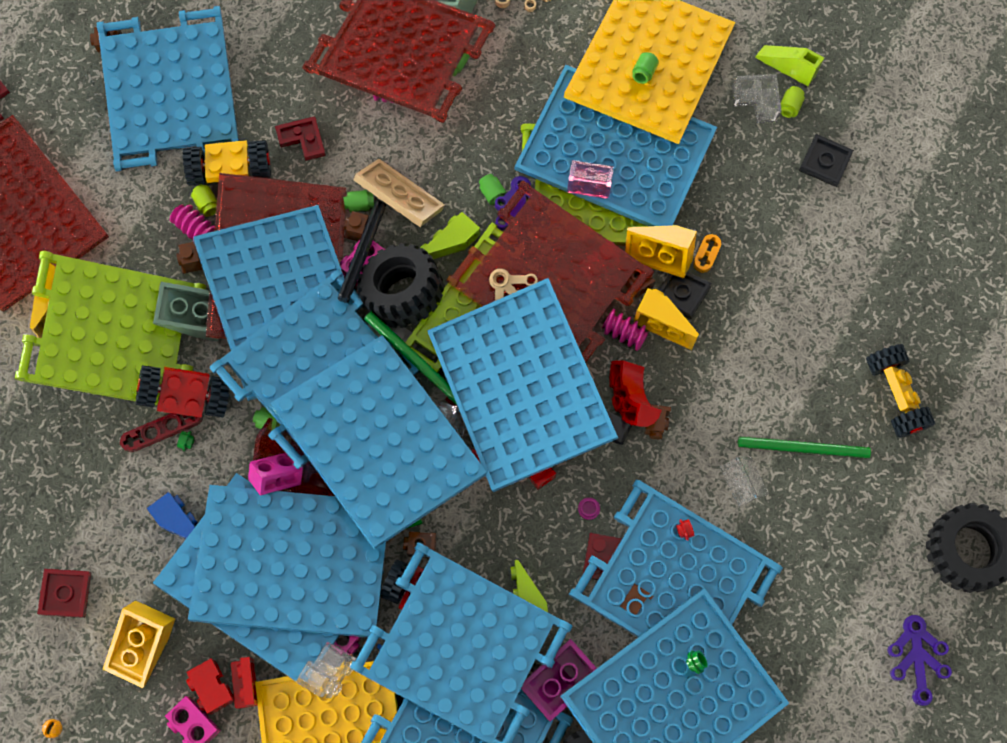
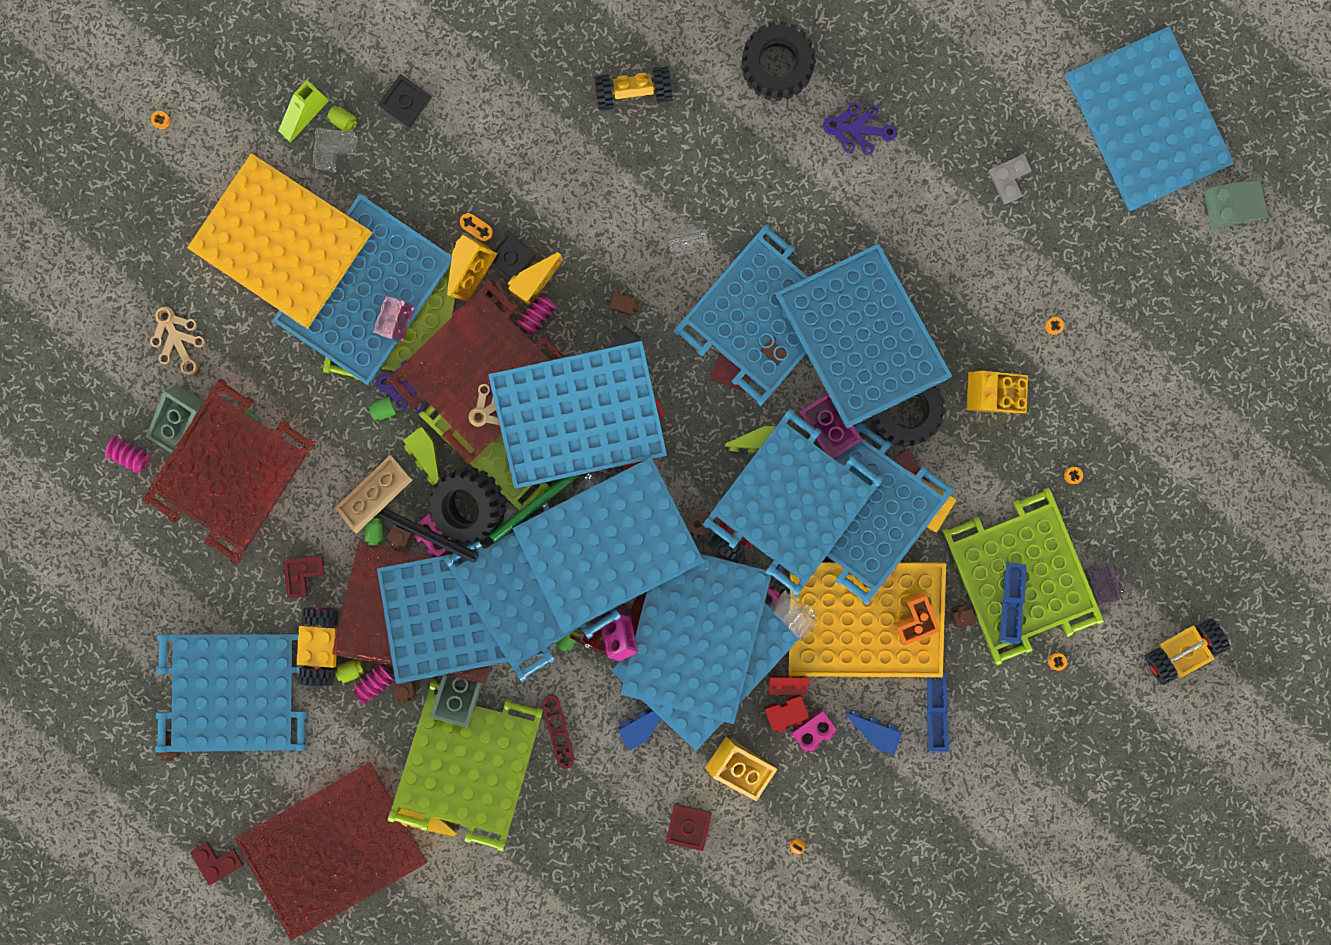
camera: 80 degrees left, 15 degrees up
(182, 392) = (533, 710): plate -> none
(185, 441) = (573, 711): green plate -> none
(588, 508) = (689, 376): magenta plate -> none
(629, 394) = (599, 322): red brick -> none
(645, 67) = (293, 248): bright green brick -> none
(685, 529) = (724, 298): red plate -> none
(696, 661) = (837, 312): green plate -> none
(804, 447) = (666, 182): green piece -> none

